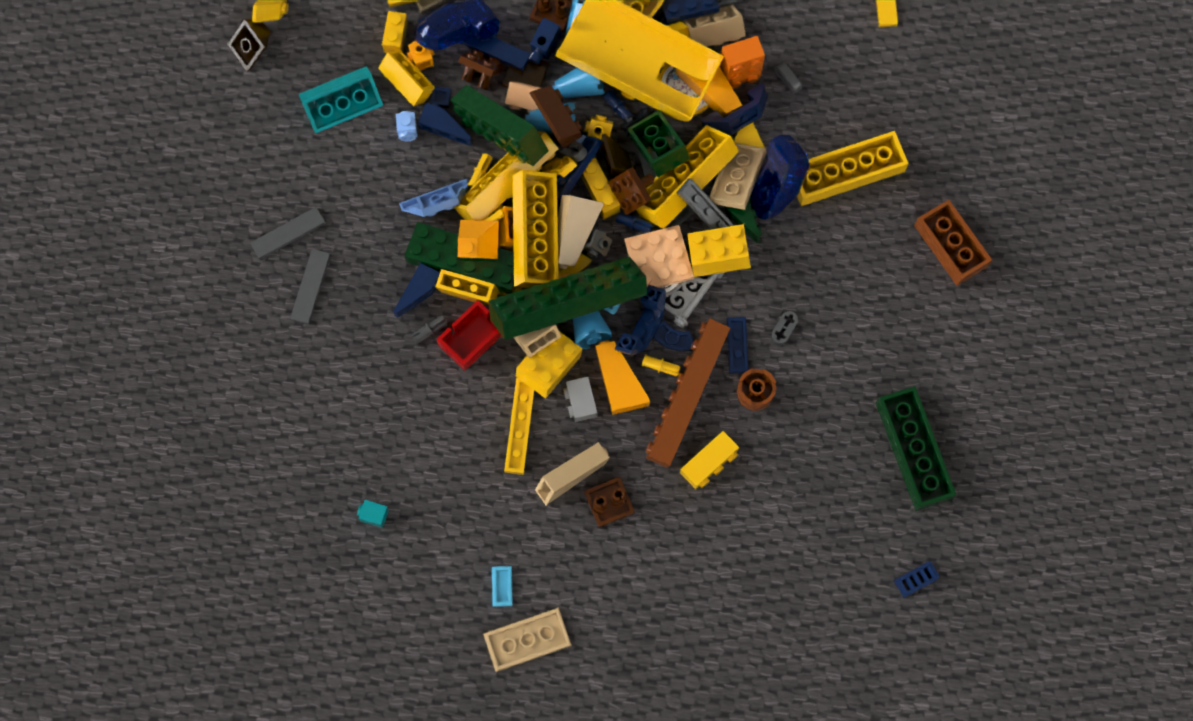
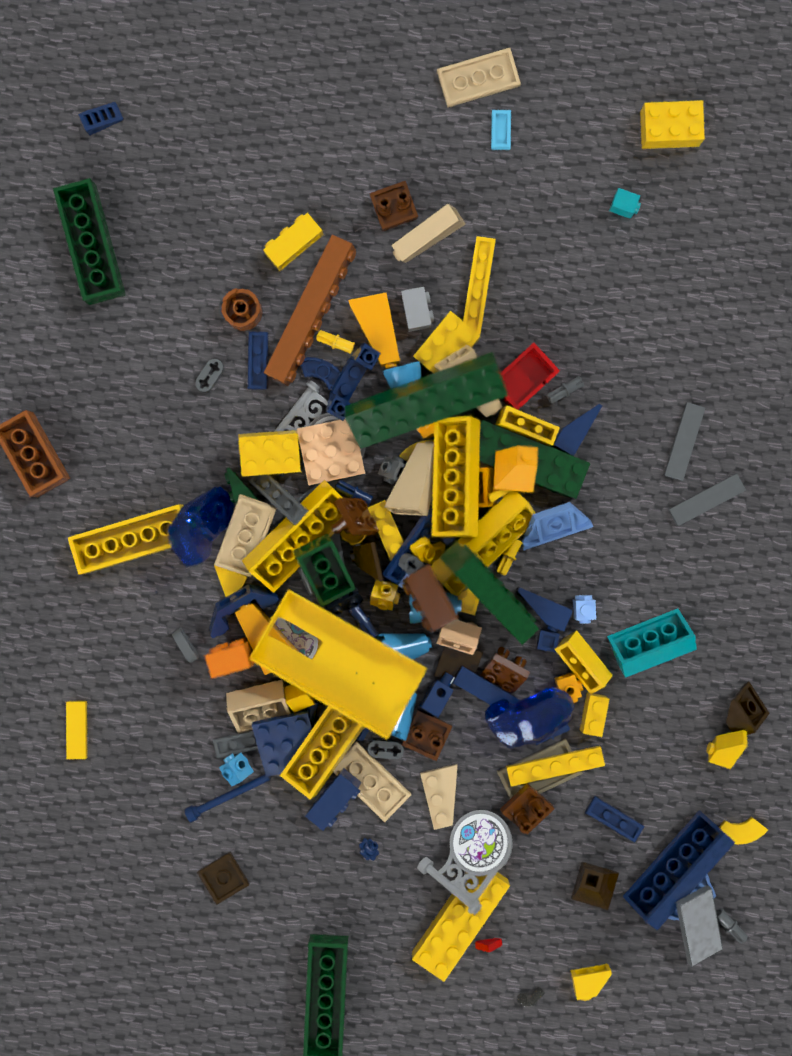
camera: 175 degrees left, 15 degrees up
(325, 595) = (672, 124): none -> yellow brick

